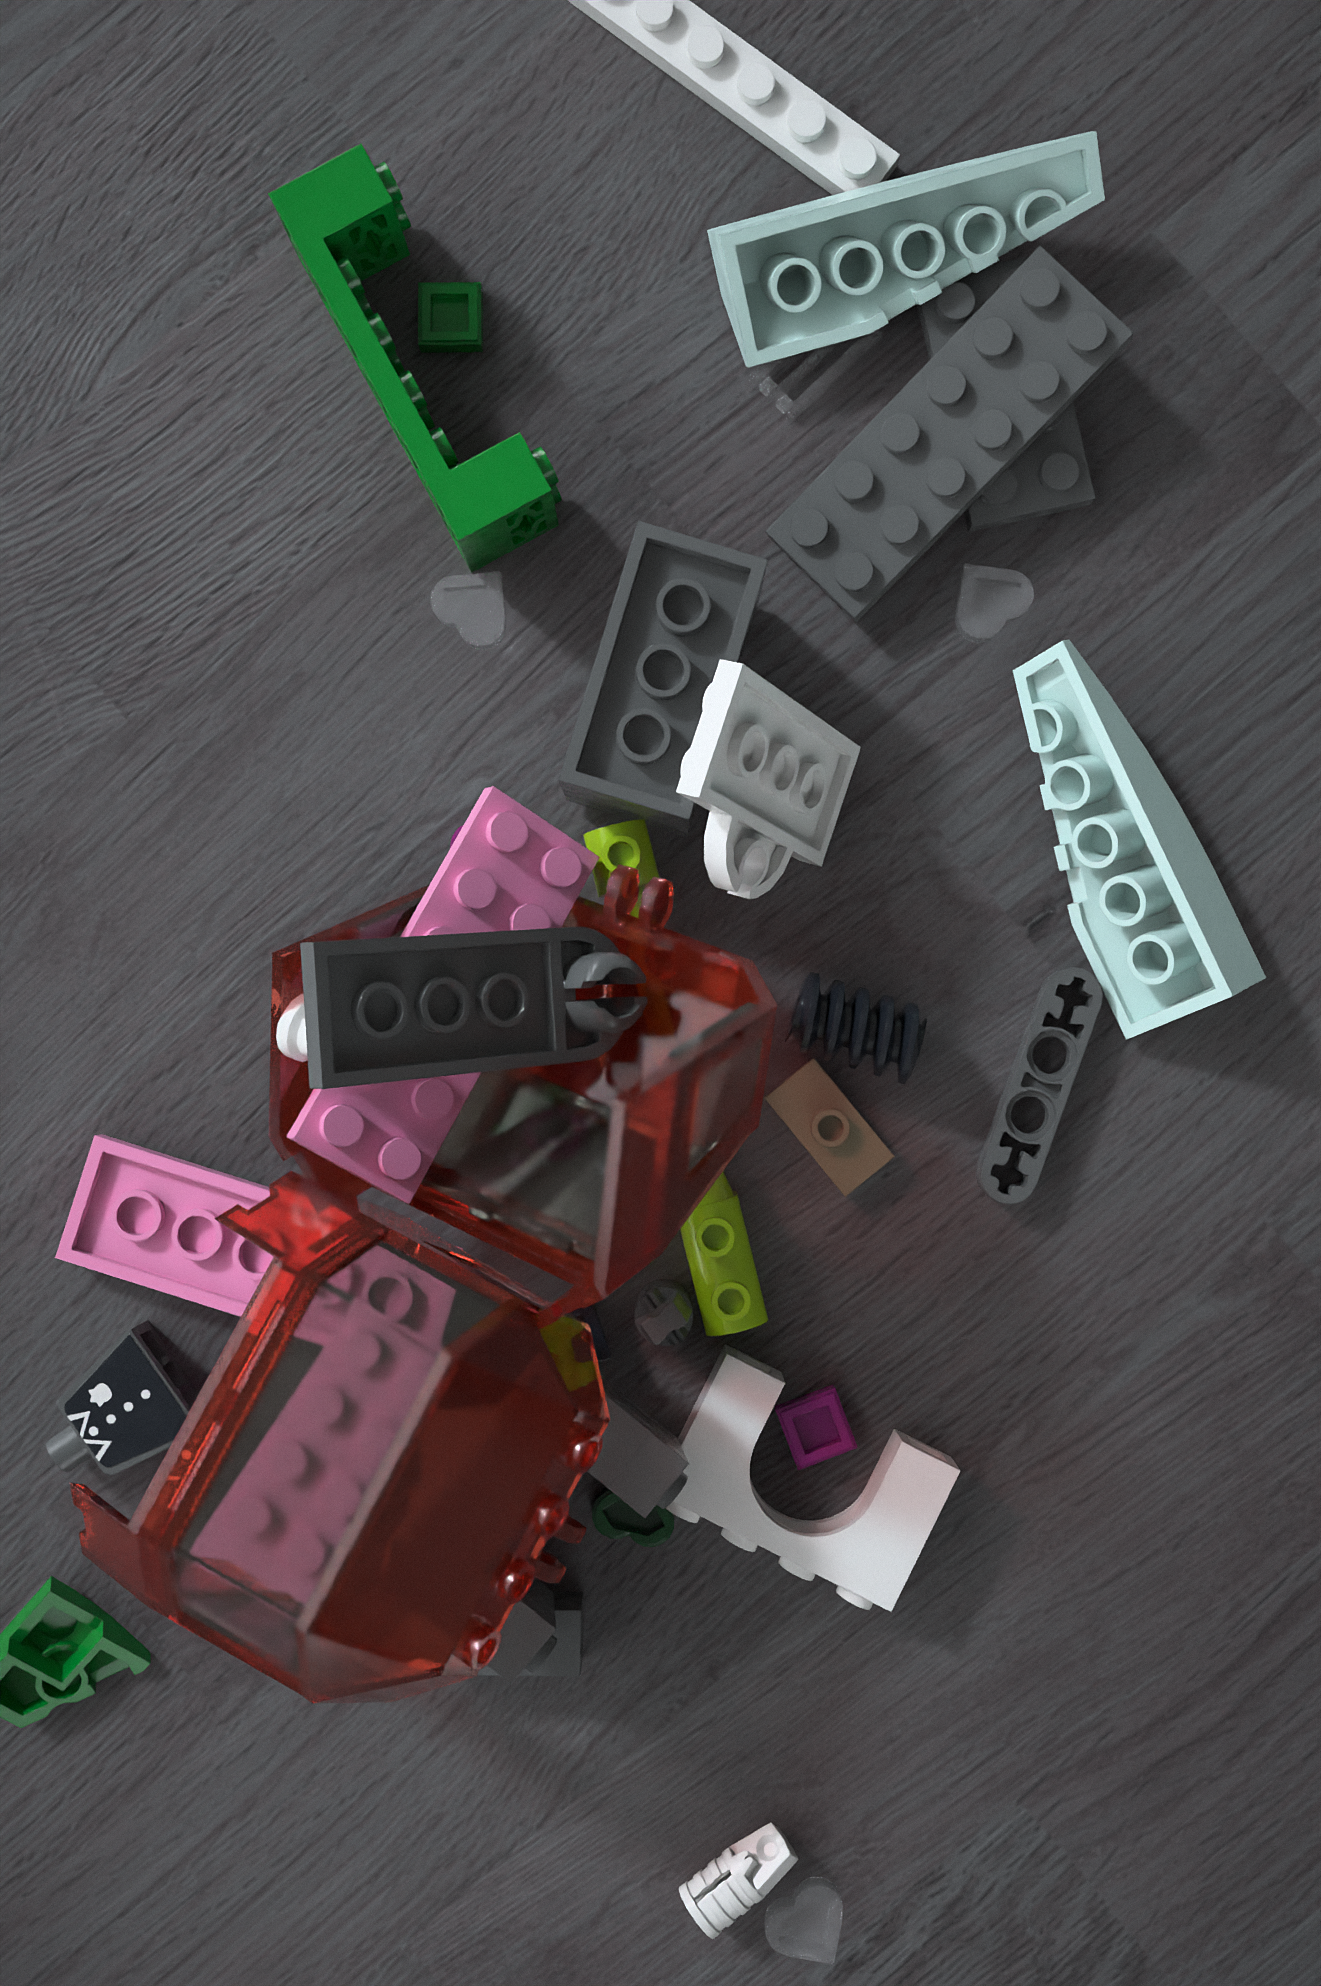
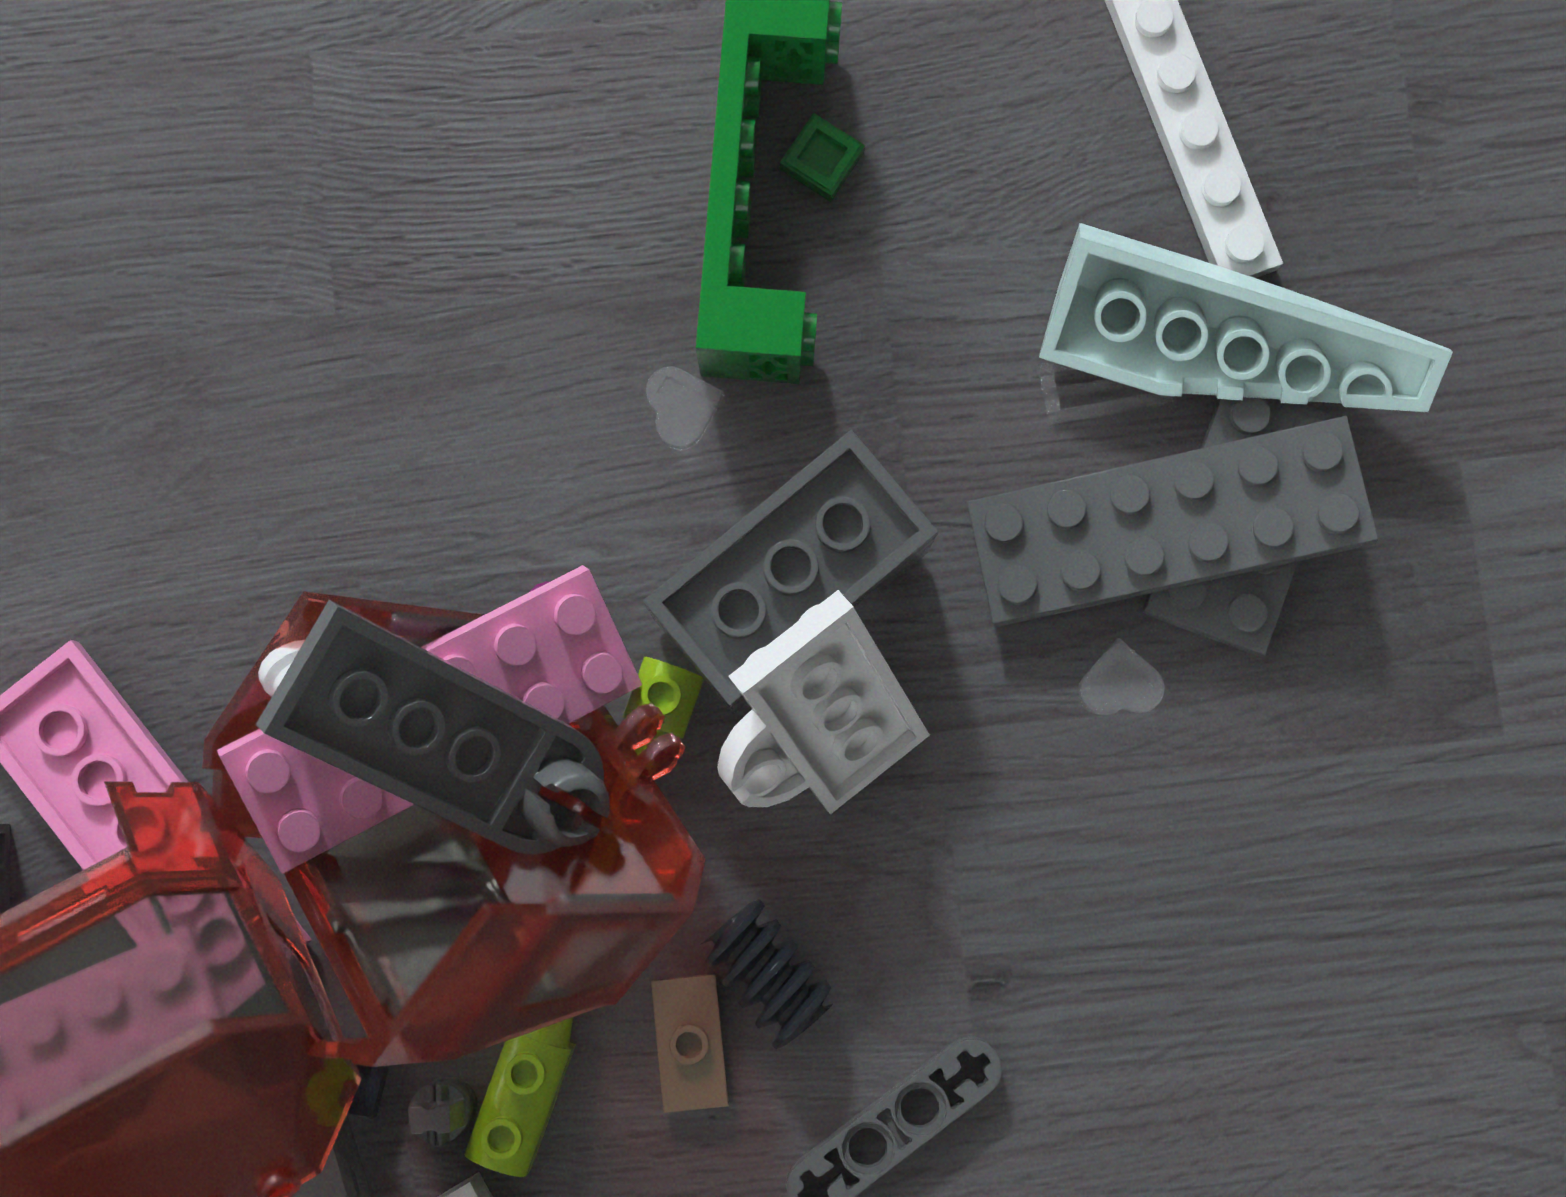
camera: 30 degrees right, 5 degrees down
(1133, 863) = (1094, 1008): light aqua wedge -> none

